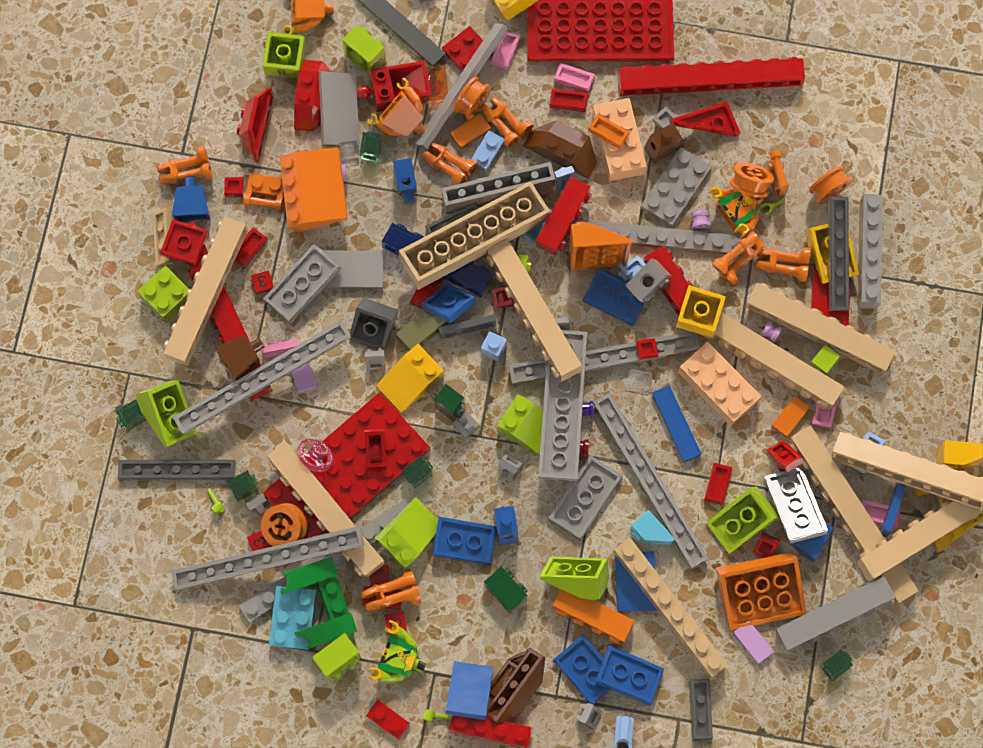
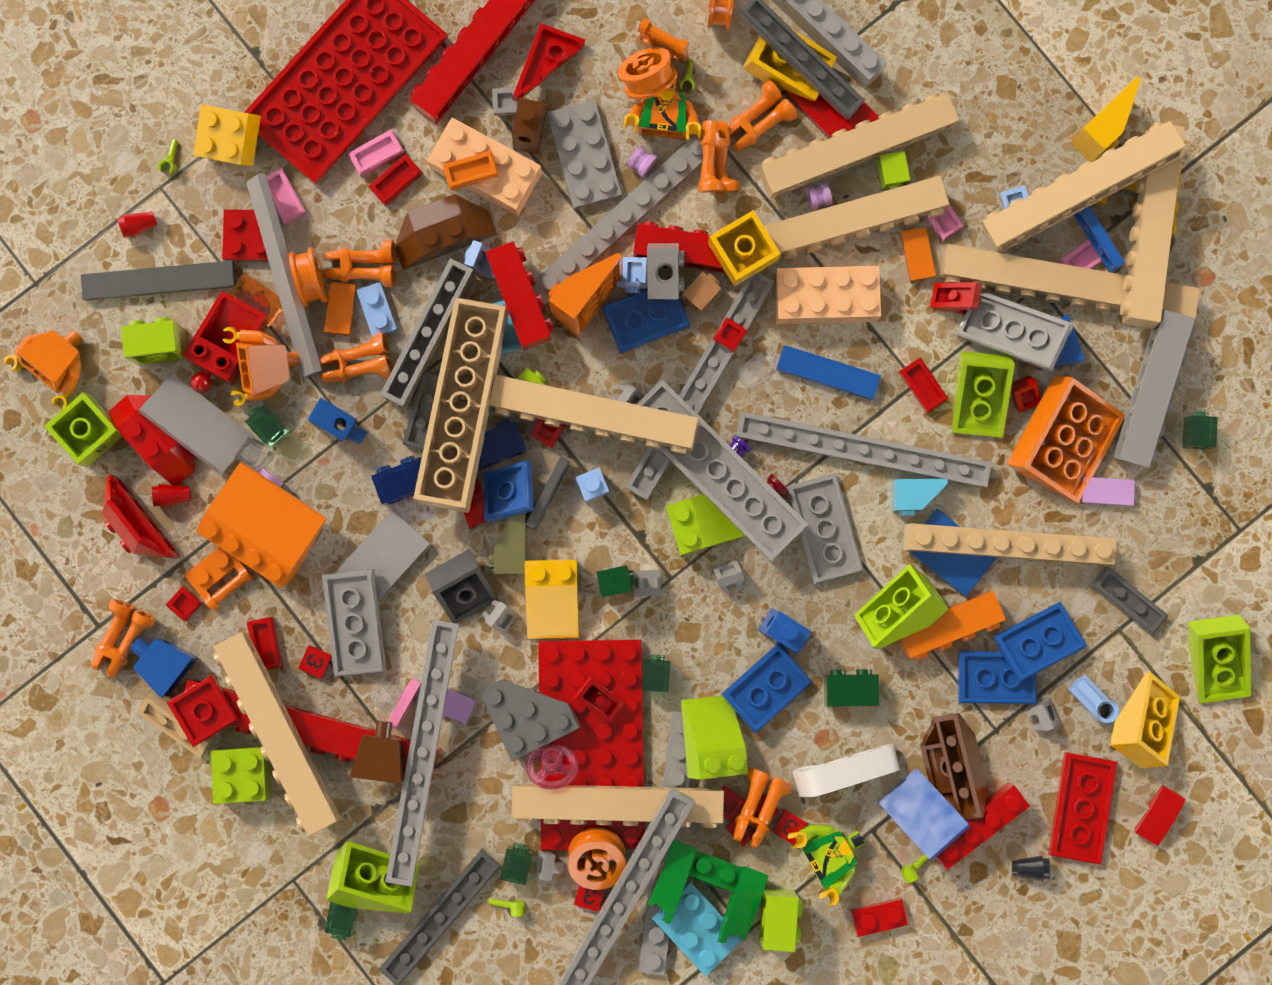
camera: 50 degrees left, 10 degrees up
(287, 128) = (168, 495): none -> red cone
(331, 421) = (527, 717): none -> dark grey plate
(456, 625) = (846, 771): none -> white beam
(657, 314) = (701, 292): none -> medium nougat brick

